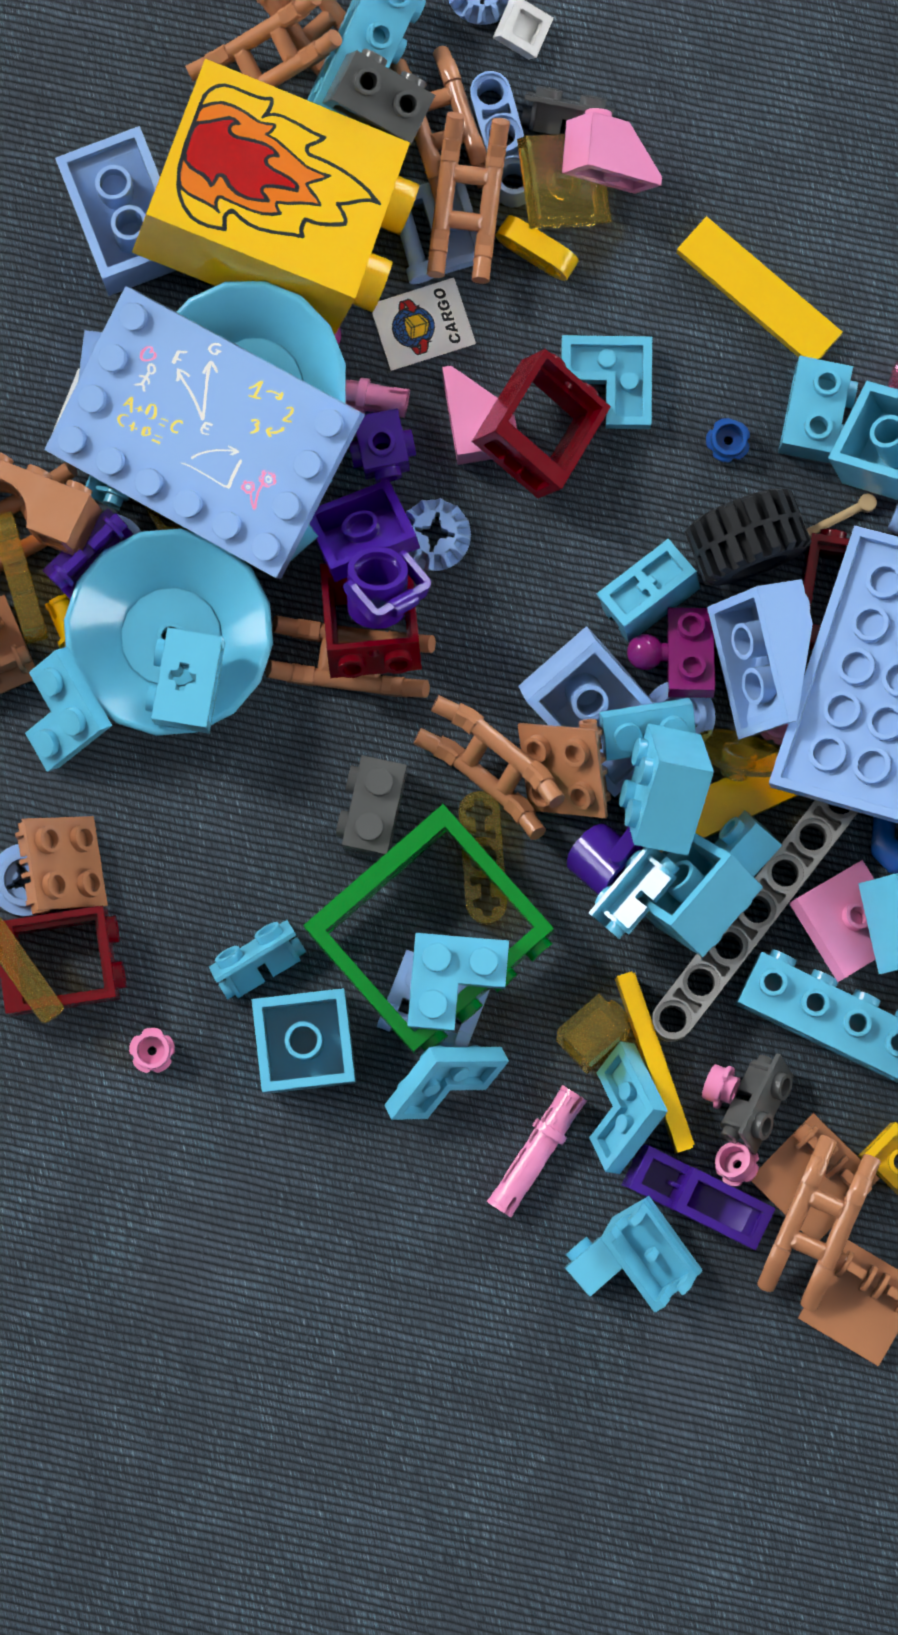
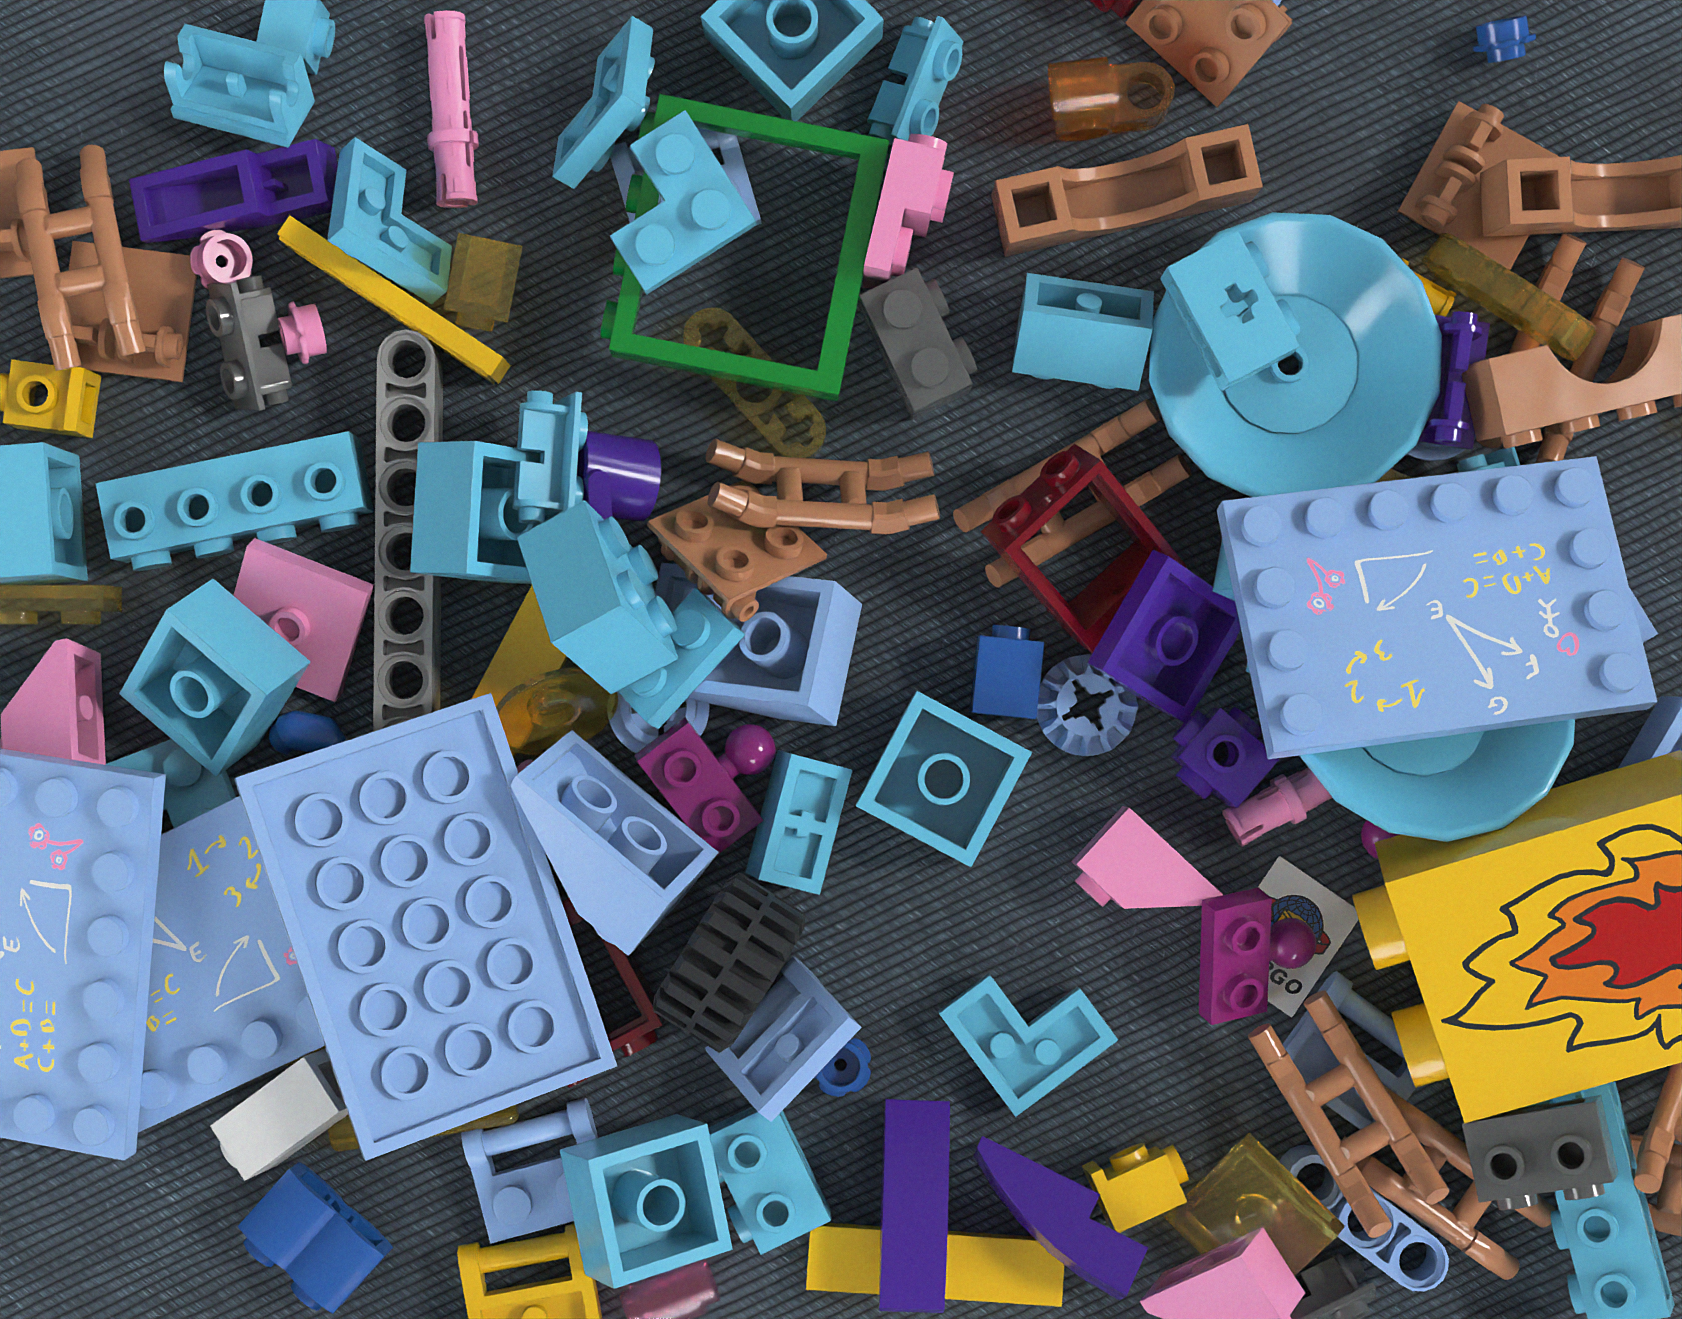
camera: 135 degrees right, 5 degrees up
(75, 711) = (1324, 185): medium azure plate -> none
(161, 868) = (1092, 98): none -> clear orange piece
(187, 802) = (1085, 203): none -> nougat arch
(274, 740) = (1083, 332): none -> medium azure brick
(310, 890) = (910, 197): none -> bright pink plate
(379, 586) = (1097, 577): dark purple piece -> none
(457, 333) = (1238, 950): none -> magenta plate
(467, 583) = (1007, 673): none -> blue brick
(518, 454) = (1069, 855): dark red window -> none
(537, 248) = (1224, 1120): yellow beam -> none
(549, 550) = (943, 778): none -> medium azure brick
(613, 249) = (1138, 1185): none -> yellow brick
(670, 262) = (1058, 1218): none -> dark purple slope
(746, 330) = (914, 1206): none -> dark purple slope
(748, 465) = (794, 1046): none -> light blue plate
(748, 842) = (471, 618): medium azure plate -> none
(865, 504) = (633, 1111): tan hinge -> none

